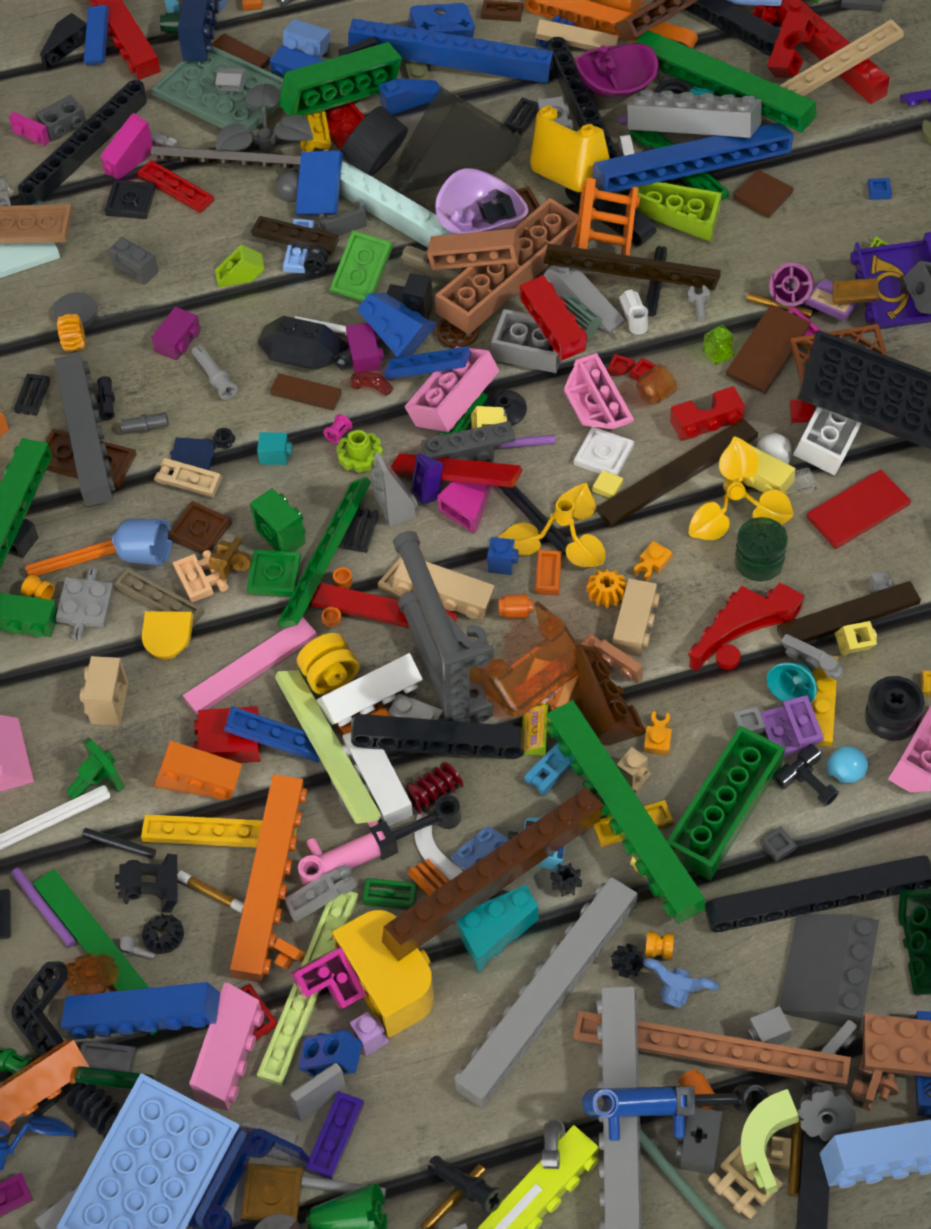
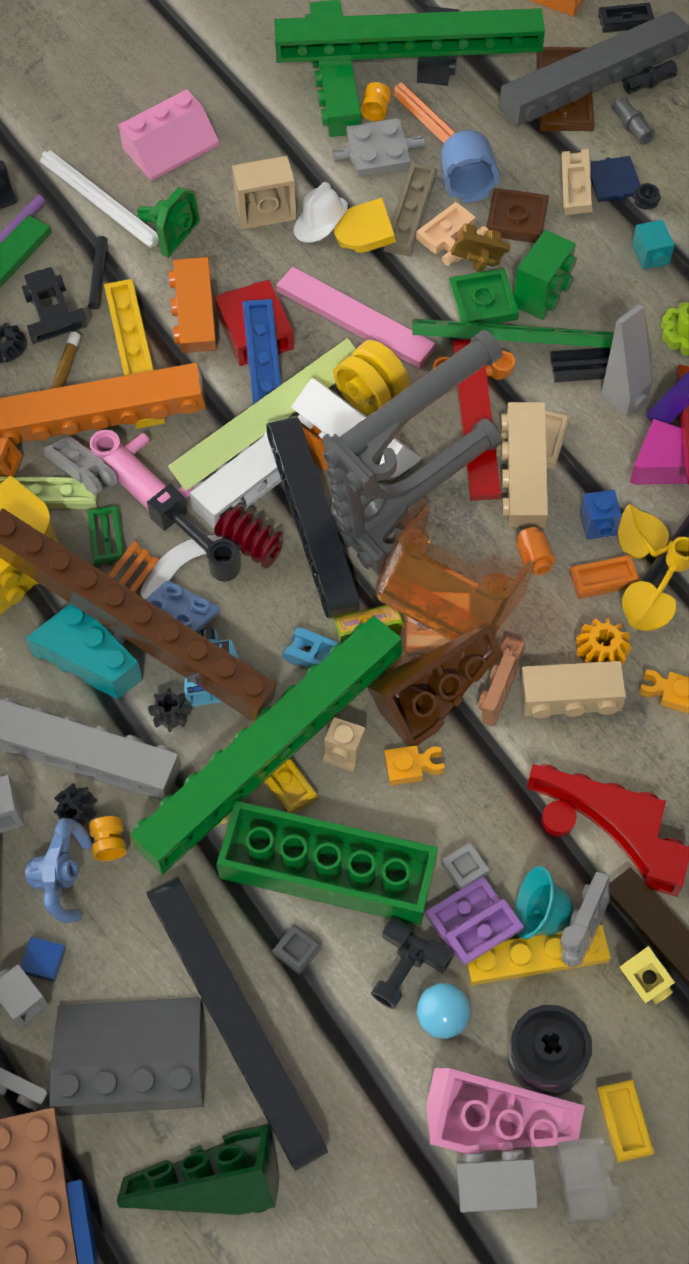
camera: 70 degrees right, 5 degrees up
(140, 663) = (320, 214): none -> white piece
(739, 1013) = (43, 959): none -> blue tile

